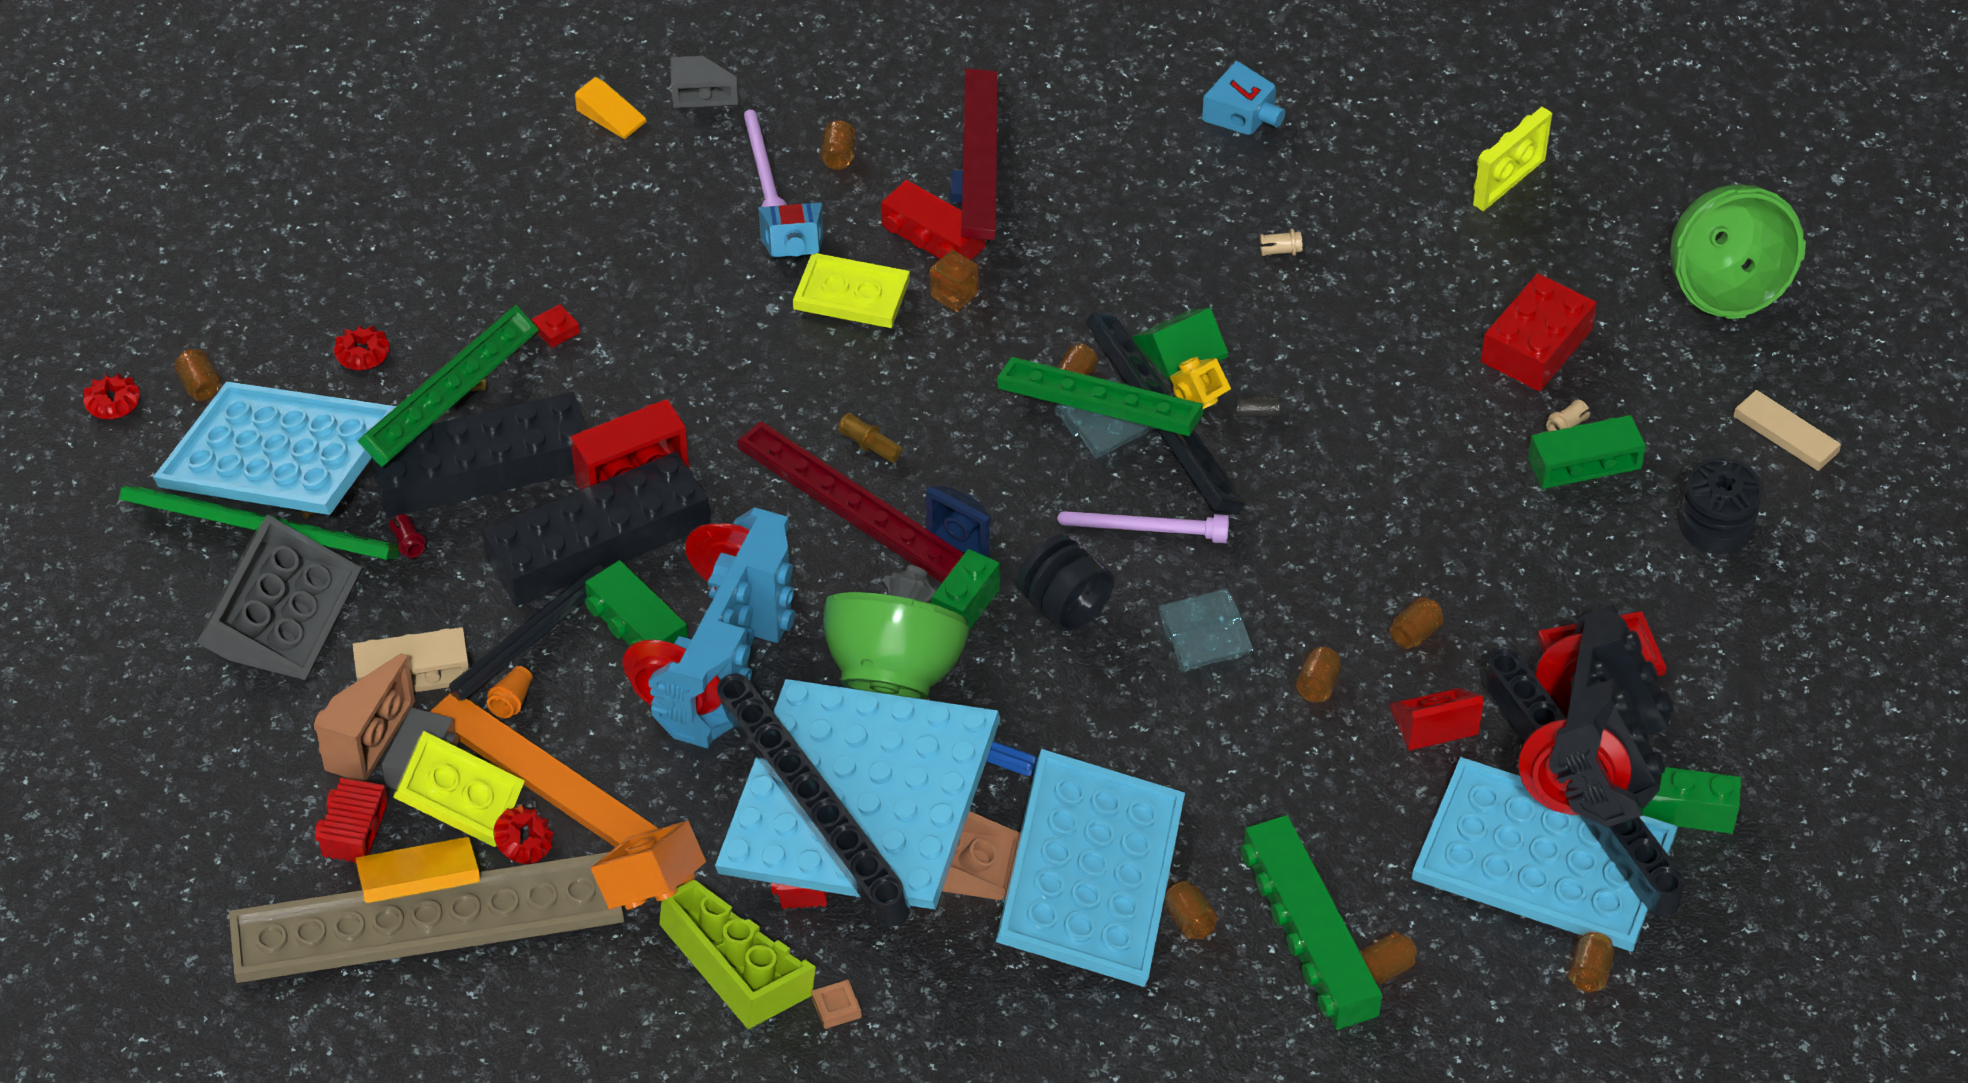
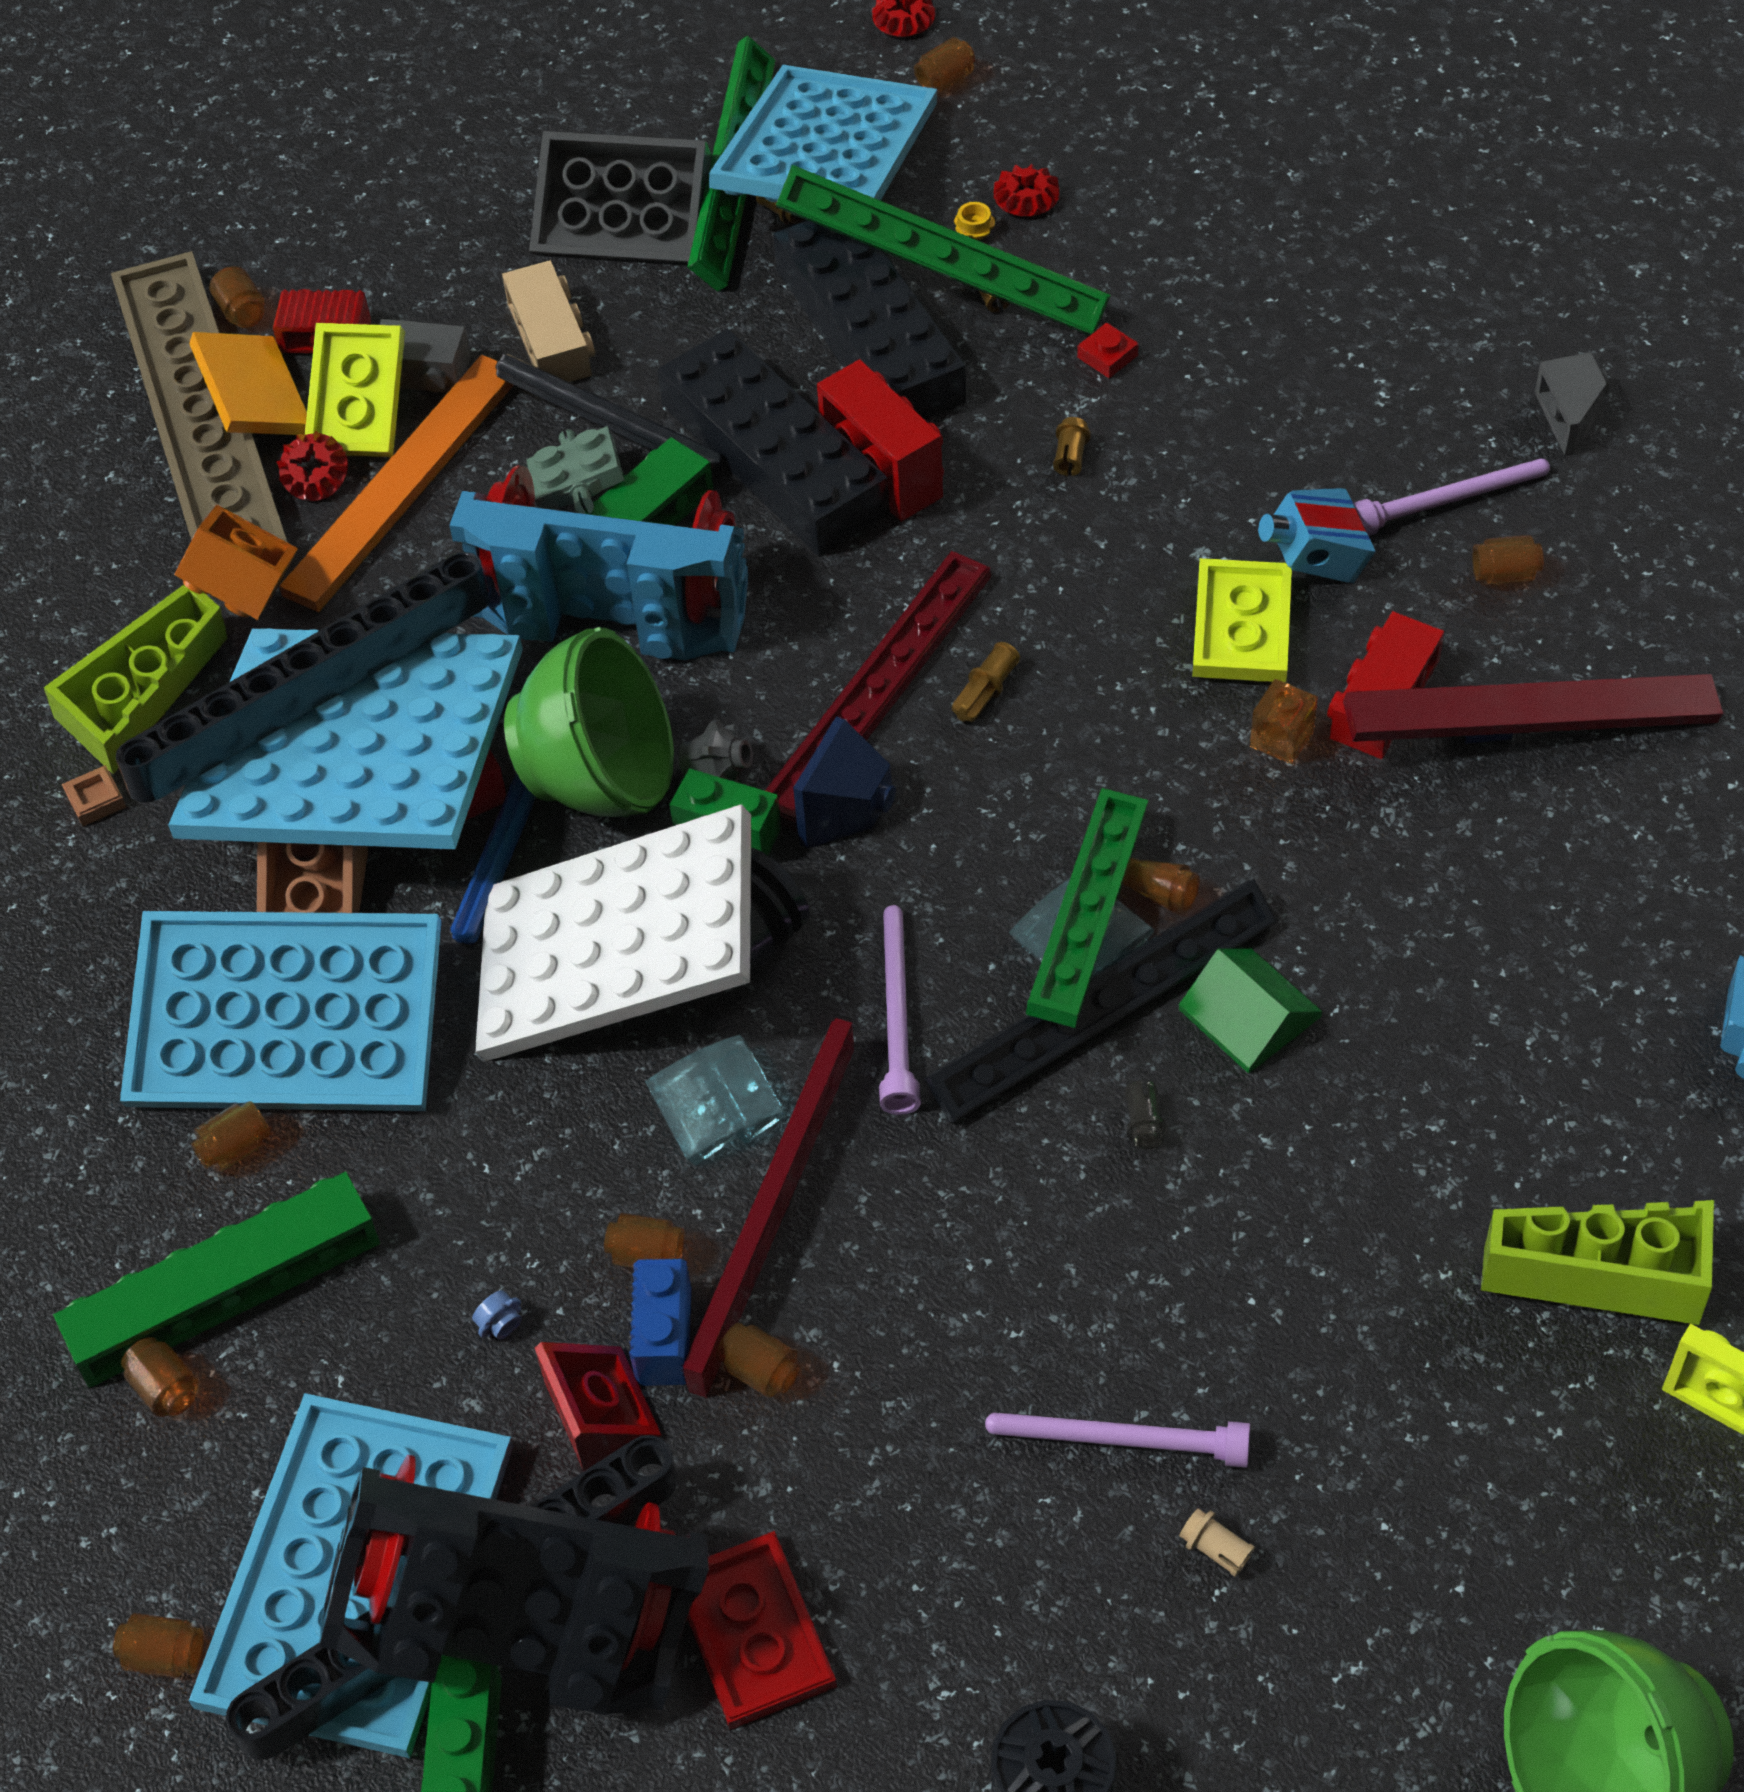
camera: 85 degrees right, 5 degrees up
(297, 880) = (237, 296): none -> clear orange brick
(365, 719) = (439, 286): nougat slope -> none
(387, 382) = (974, 220): none -> yellow plate
(409, 540) = (730, 288): dark red pin -> none
(509, 693) = (518, 416): orange cone -> none
(592, 649) = (575, 469): none -> sand green plate
(608, 108) = (1498, 325): light orange slope -> none
(652, 358) = (1072, 437): none -> pearl gold pin
(1079, 647) = (616, 934): none -> white plate
(1200, 381) = (1156, 1027): yellow brick -> none
(1283, 243) = (1490, 1118): tan pin -> none
(1299, 603) = (769, 1206): none -> dark red tile
(1361, 763) = (497, 1315): none -> medium blue plate
(1384, 669) = (660, 1321): none -> blue brick
(1408, 199) = (1605, 1259): none -> lime wedge
(1502, 403) = (1225, 1443): none -> lavender piece
(1538, 332) = (1385, 1478): red brick -> none
(1586, 452) = (1148, 1571): green brick -> none

